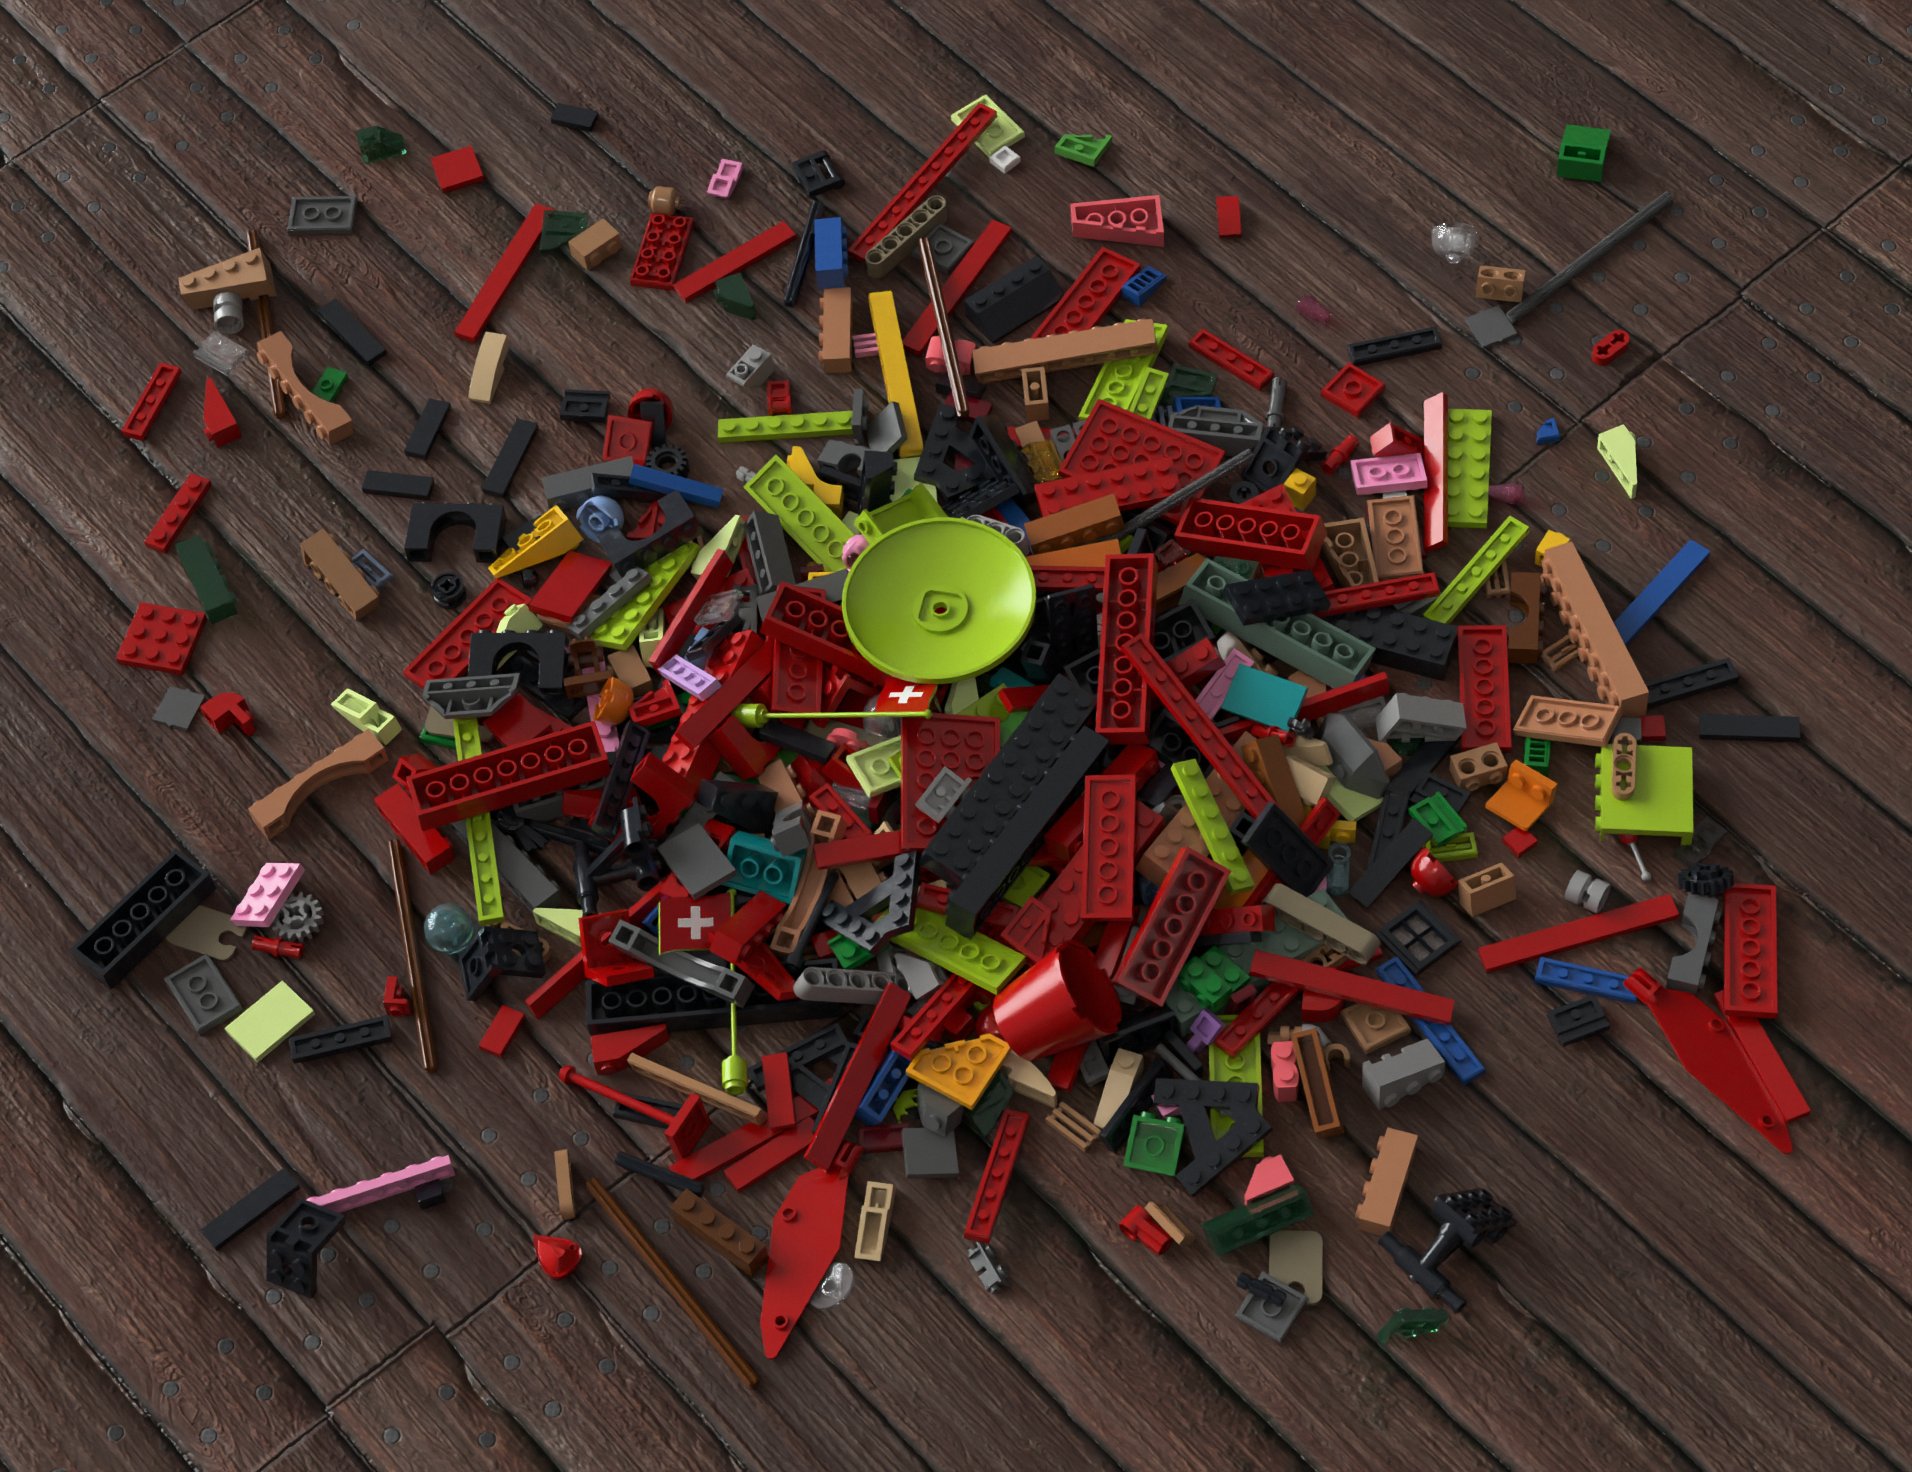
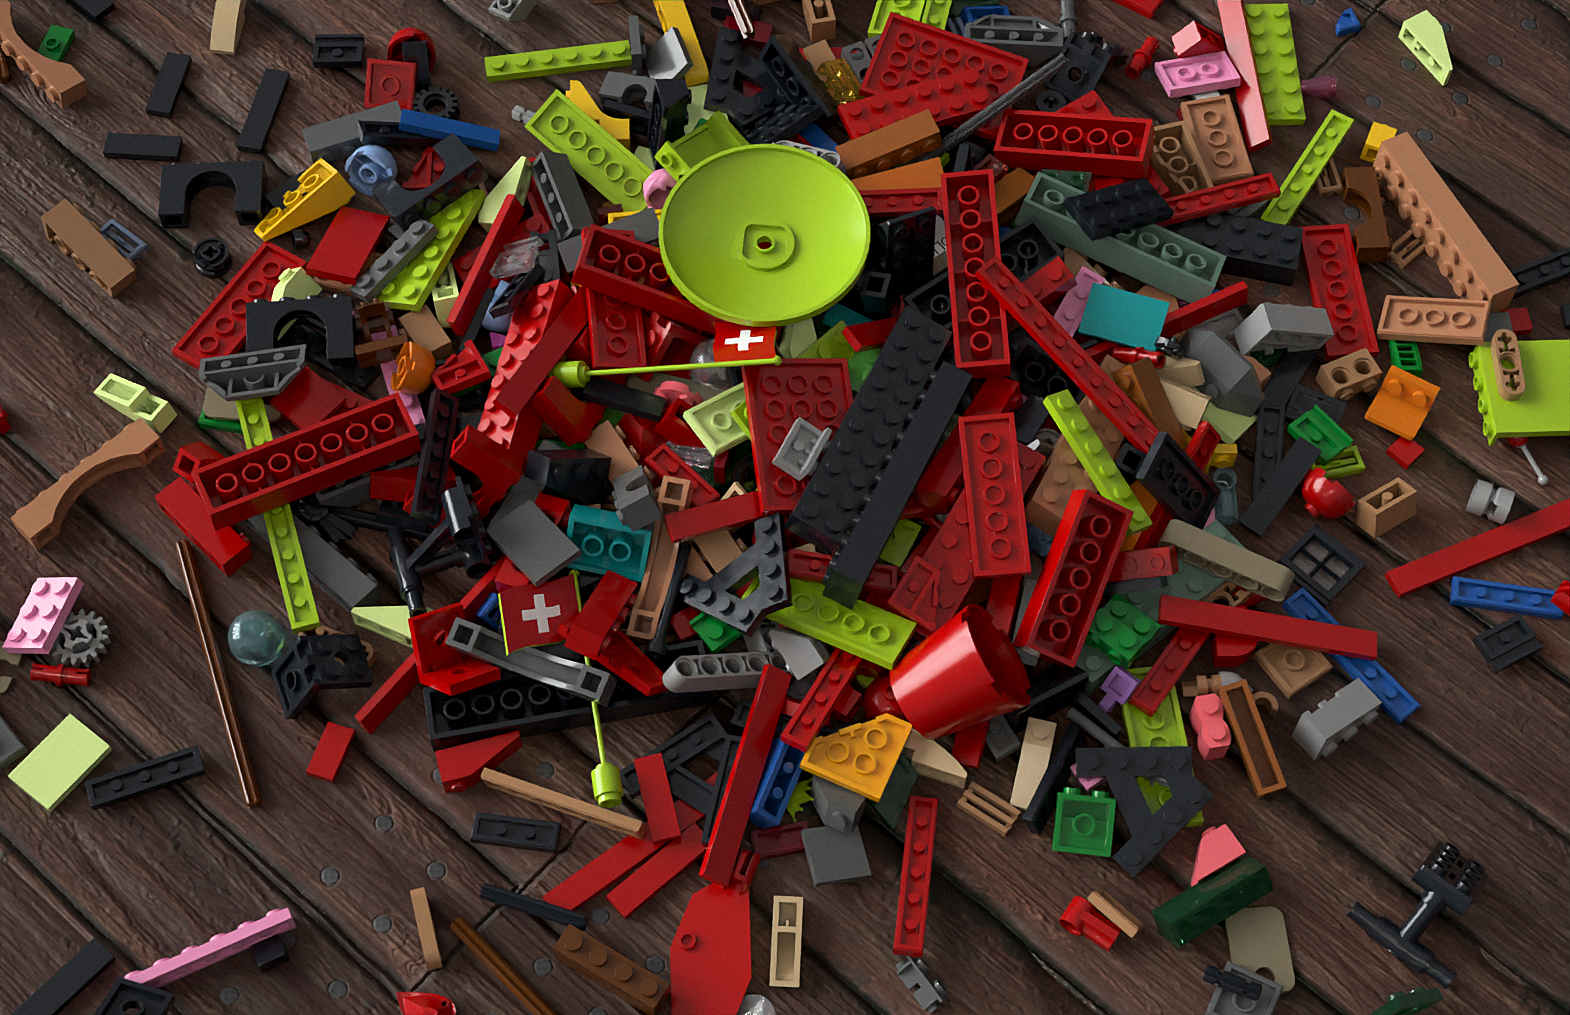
camera: 15 degrees left, 5 degrees up
(393, 998) = (202, 723): red bracket -> none
(683, 1129) = (557, 851): red tile -> none
(690, 677) = (497, 337): lavender plate -> none
(778, 389) = (544, 25): red tile -> none
(779, 405) = (548, 39): red bush -> none
(1240, 1000) = (1151, 652): dark red tile -> none
(1300, 488) = (1111, 92): yellow brick -> none
(1387, 1182) = (1343, 844): nougat brick -> none
(1660, 590) = (1497, 172): blue tile -> none

